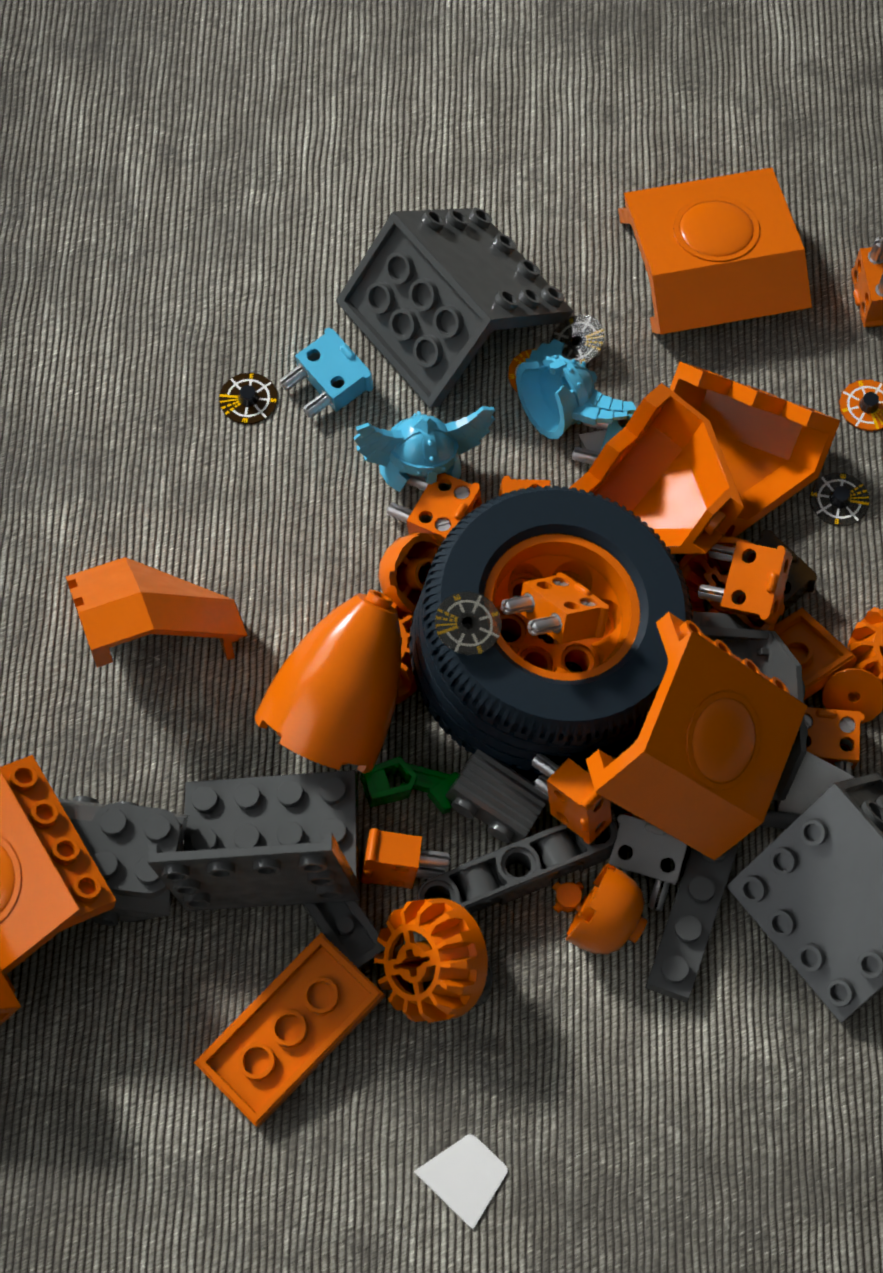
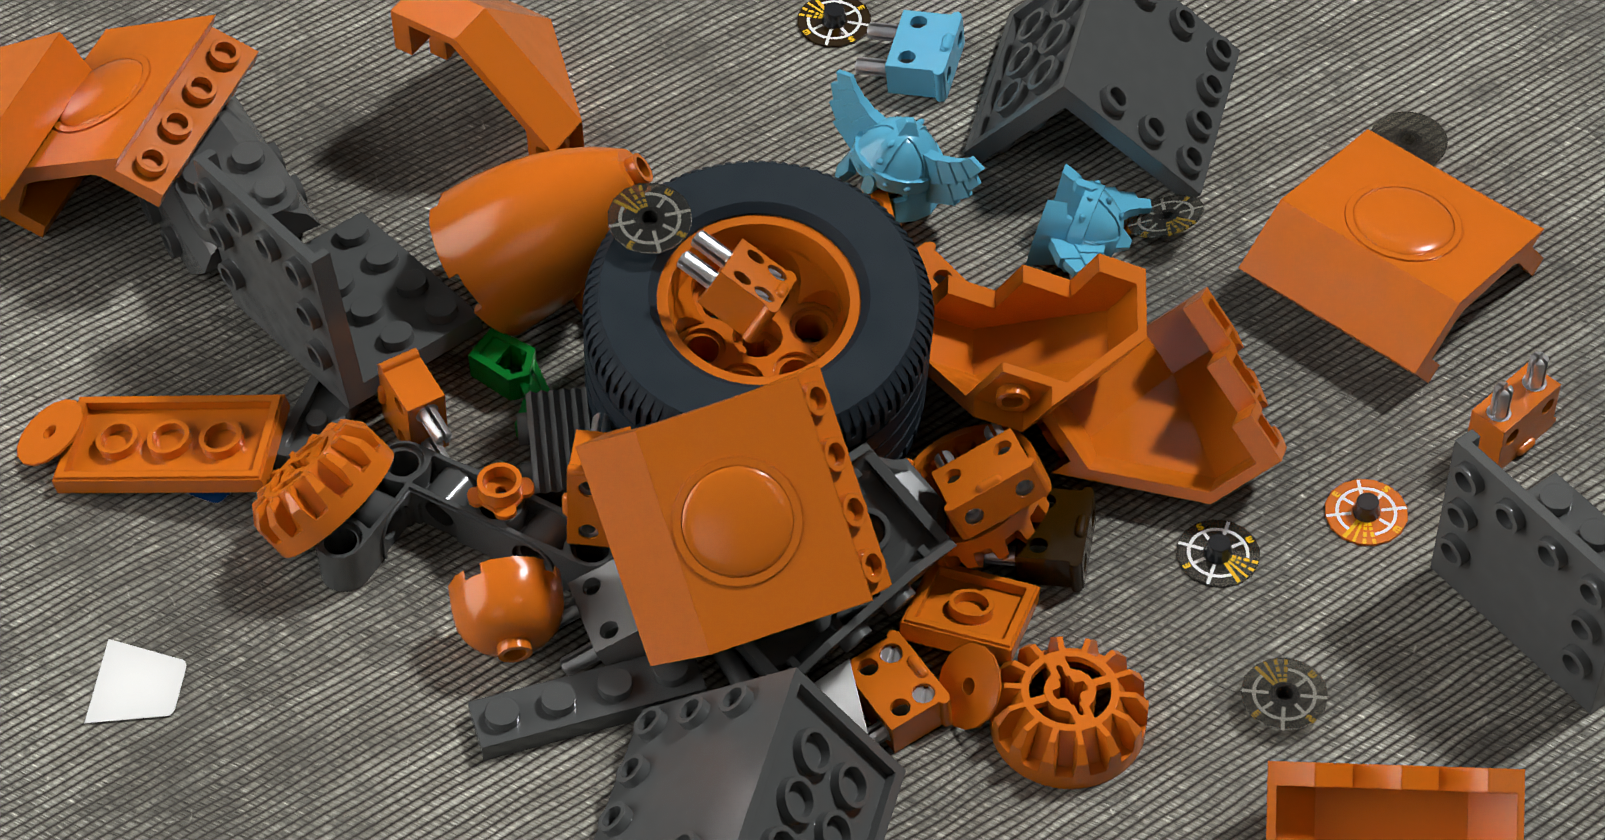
camera: 55 degrees right, 15 degrees down
(211, 1101) = (50, 432): none -> orange piece
(518, 843) = (500, 478): none -> orange plate
(621, 175) = (1414, 134): none -> clear smoke piece

